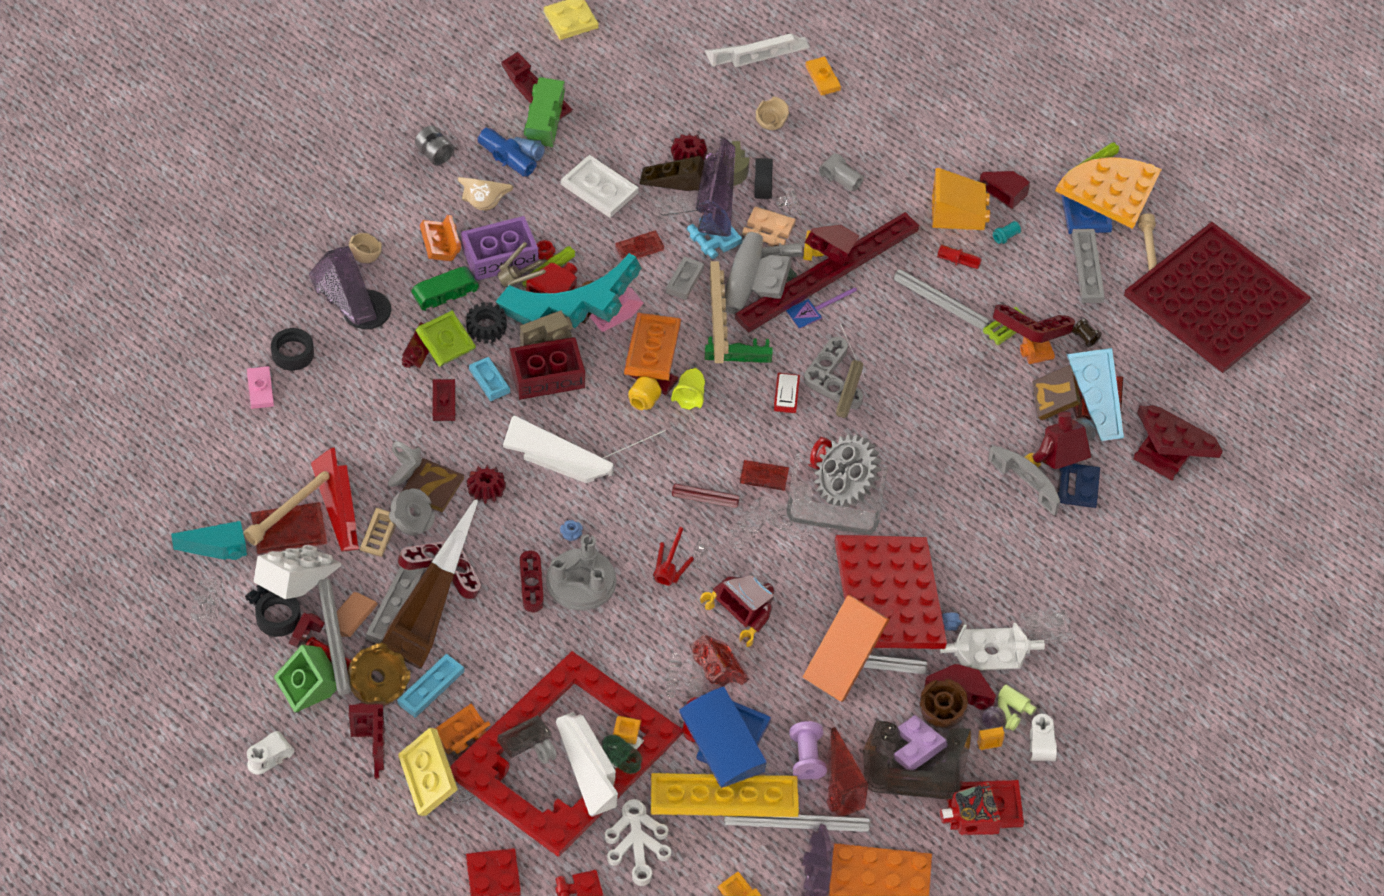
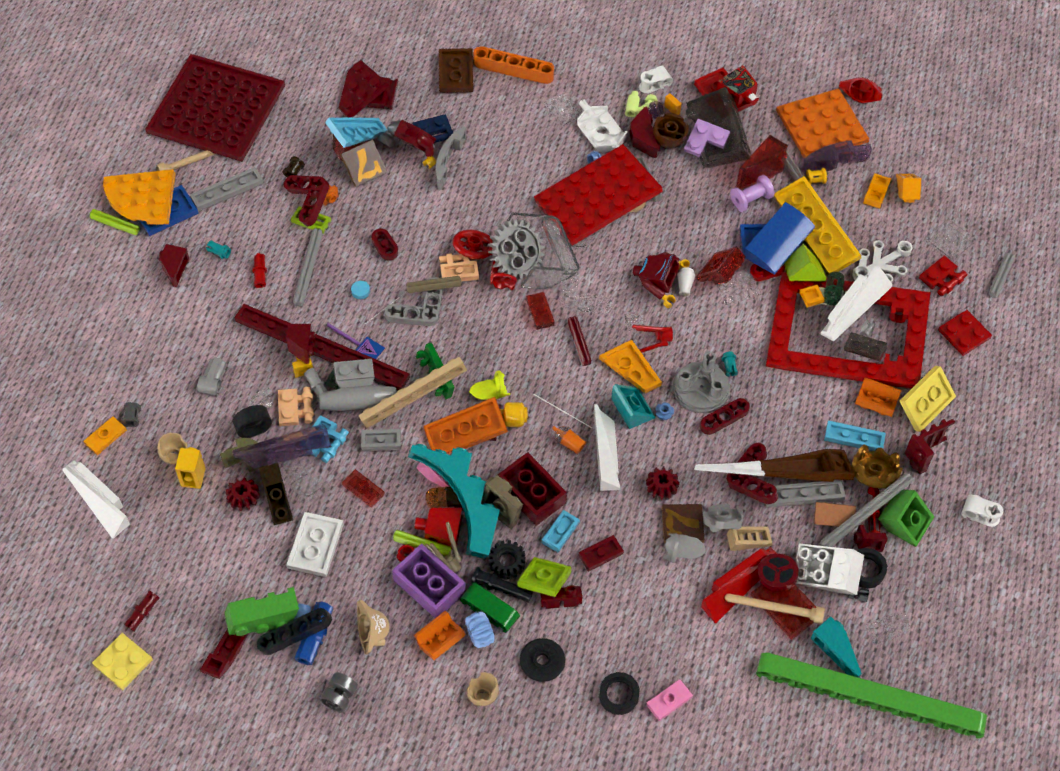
camera: 115 degrees left, 5 degrees up
(146, 545) = (873, 694): none -> bright green beam
(322, 526) = (778, 572): none -> dark red tile
(343, 285) = (535, 683): clear purple wedge -> none
(423, 264) = (479, 629): none -> light blue gear
(470, 299) = (492, 582): none -> black pin
(512, 130) = (294, 631): none -> black beam
(588, 429) = (569, 439): none -> orange piece
(591, 616) = (729, 363): none -> teal pin
(594, 499) = (631, 405): none -> teal slope
(611, 43) = (141, 611): none -> dark red pin
(647, 526) = (632, 366): none -> light orange wing
(670, 748) = (804, 266): none -> lime slope
(726, 628) = (685, 280): none -> white cone
(737, 114) = (190, 468): none -> yellow brick
(786, 392) = (458, 325): slope -> none
(799, 837) = (821, 173): none -> yellow bush
(833, 98) = (131, 414): none -> dark grey bush
(845, 648) = (667, 192): orange tile -> none
(861, 420) = (466, 270): none -> light nougat plate
(885, 333) = (360, 289): none -> medium azure tile
(906, 452) = (474, 243): none -> red plate
(933, 374) = (385, 245): none -> dark red plate
(958, 202) = (209, 286): light orange slope -> none
(1142, 592) = (513, 65): none -> orange beam
(1162, 542) = (456, 70): none -> reddish brown plate

